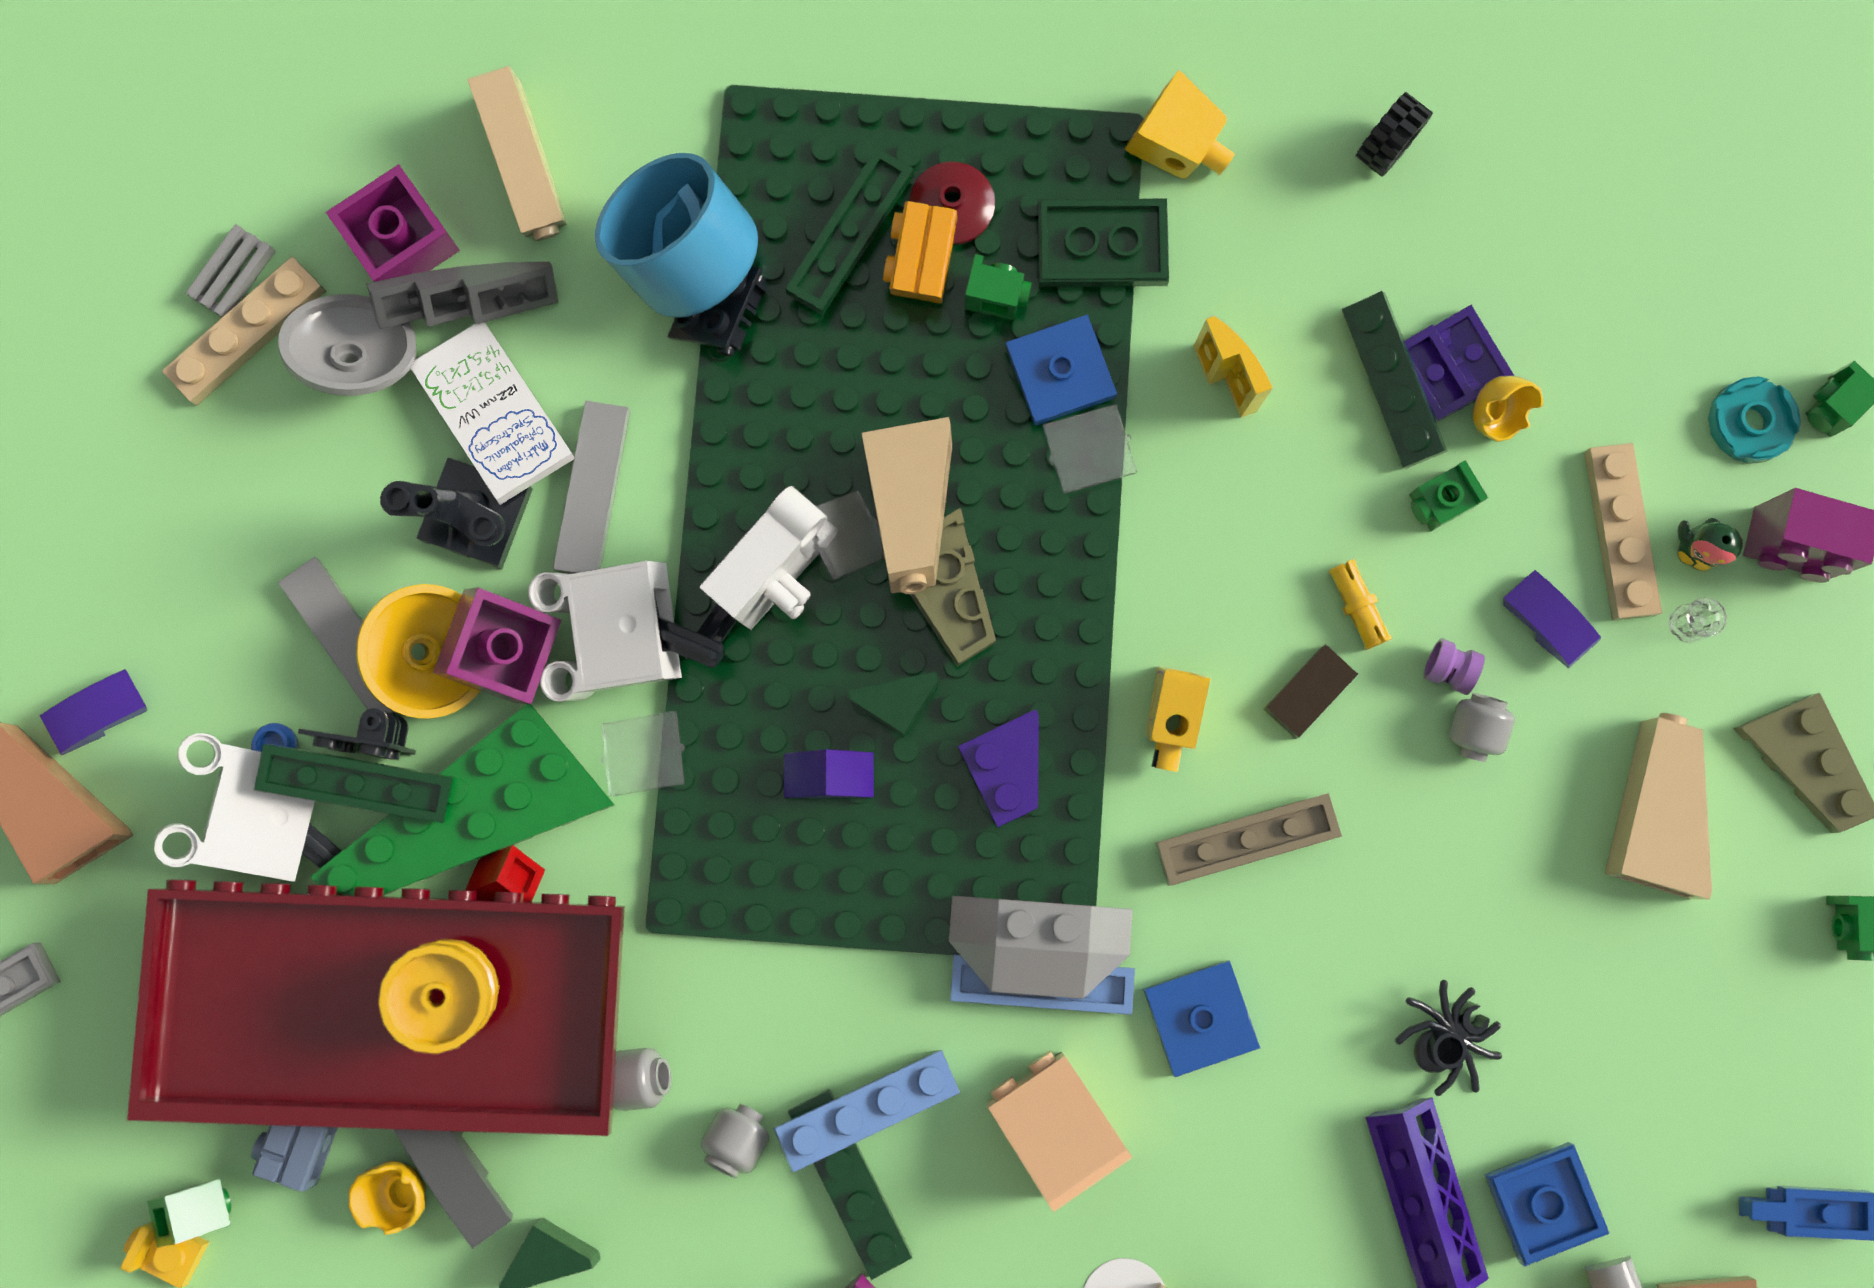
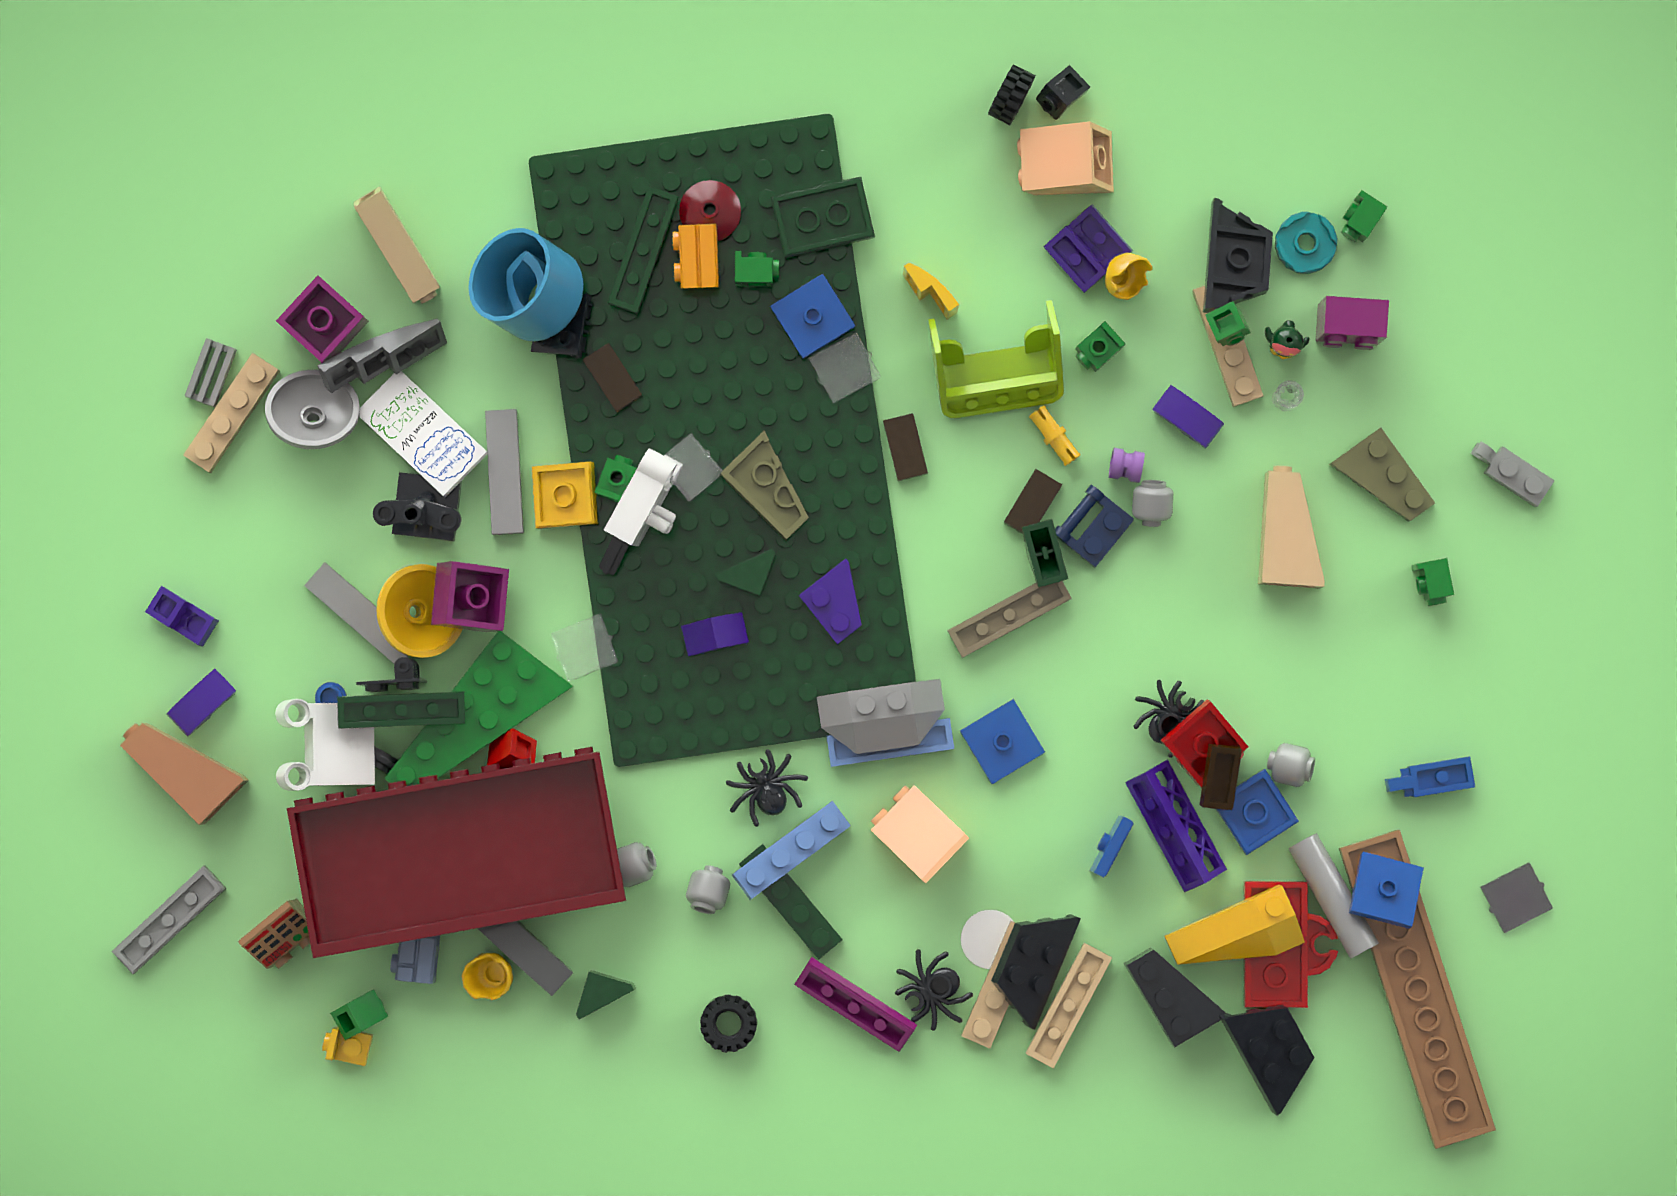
camera: 10 degrees left, 5 degrees up
(91, 1072) = (278, 935): none -> medium nougat slope
(101, 587) = (182, 616): none -> dark purple slope
(414, 1012) = (493, 851): yellow wheel -> none
(619, 630) = (550, 567): white piece -> none
(668, 531) = (564, 495): none -> yellow tile
(722, 536) = (612, 490): none -> green brick
(769, 393) = (612, 377): none -> dark brown tile
(852, 1010) = (766, 788): none -> black animal
(909, 491) = (727, 428): tan slope -> none
(1149, 575) = (905, 447): none -> dark brown tile
(1175, 694) = (941, 526): yellow torso -> none
(1181, 131) = (861, 123): yellow torso -> none
(1304, 510) = (1000, 377): none -> lime windscreen
(1317, 763) = (1044, 553): none -> dark green slope
(1333, 1212) = (1110, 846): none -> blue plate
(1394, 380) = (1047, 270): dark green plate -> none
(1397, 754) = (1101, 533): none -> dark blue plate
(1449, 235) = (1066, 159): none -> light nougat slope
(1458, 150) = (1062, 92): none -> black bracket
(1496, 1090) = (1191, 737): none -> red plate
(1512, 1144) = (1220, 777): none -> dark brown tile
(1613, 1147) = (1291, 765): none -> light grey head
(1644, 507) = (1229, 329): none -> green brick
(1658, 418) = (1235, 258): none -> black wing

